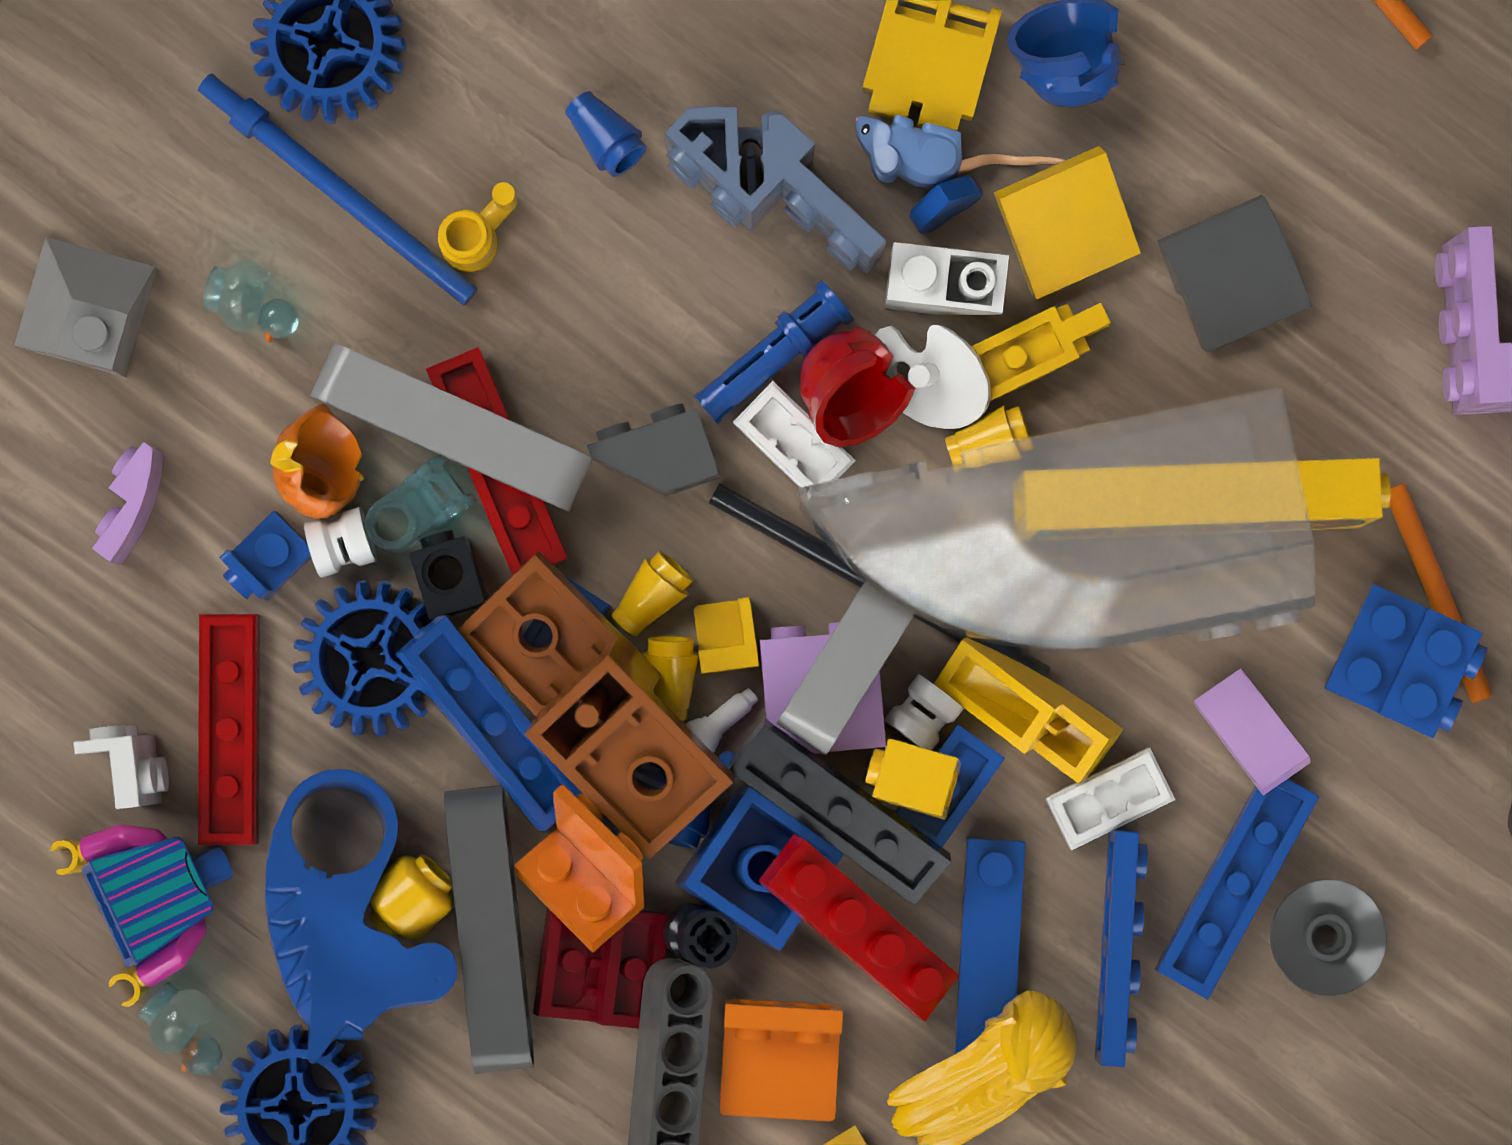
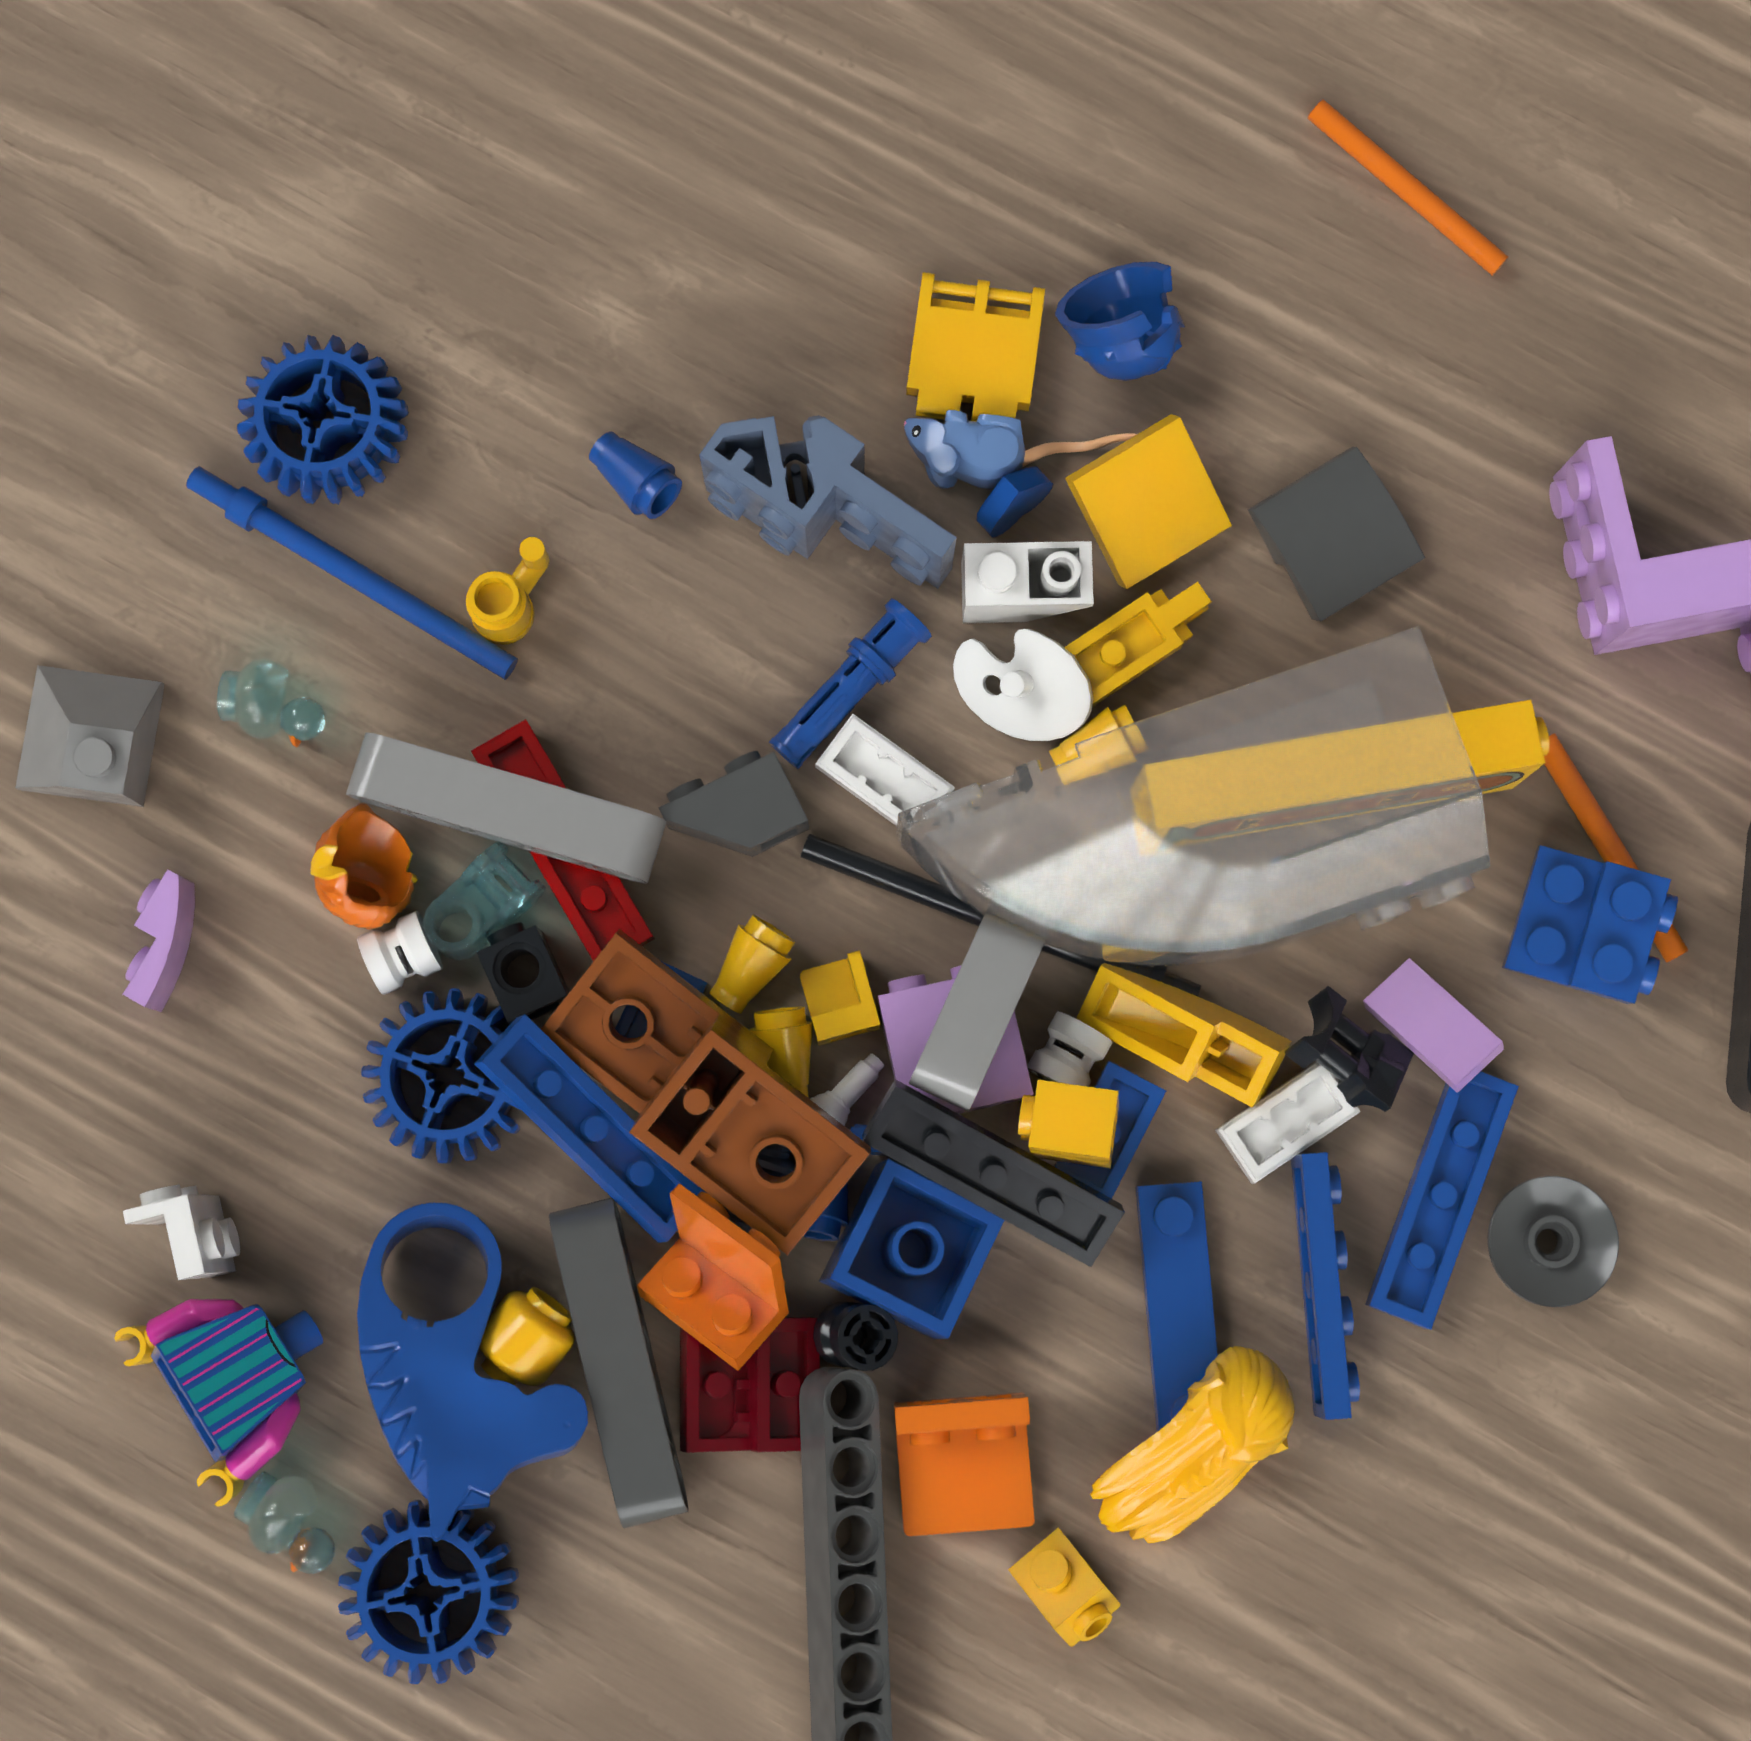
camera: 10 degrees left, 5 degrees down
(228, 729) = (300, 1178): red tile -> none
(266, 558) = (319, 982): blue bracket -> none
(849, 388) = (937, 712): red helmet -> none
(858, 927) = (1031, 1301): red plate -> none
(1196, 756) = (1376, 1059): none -> black piece

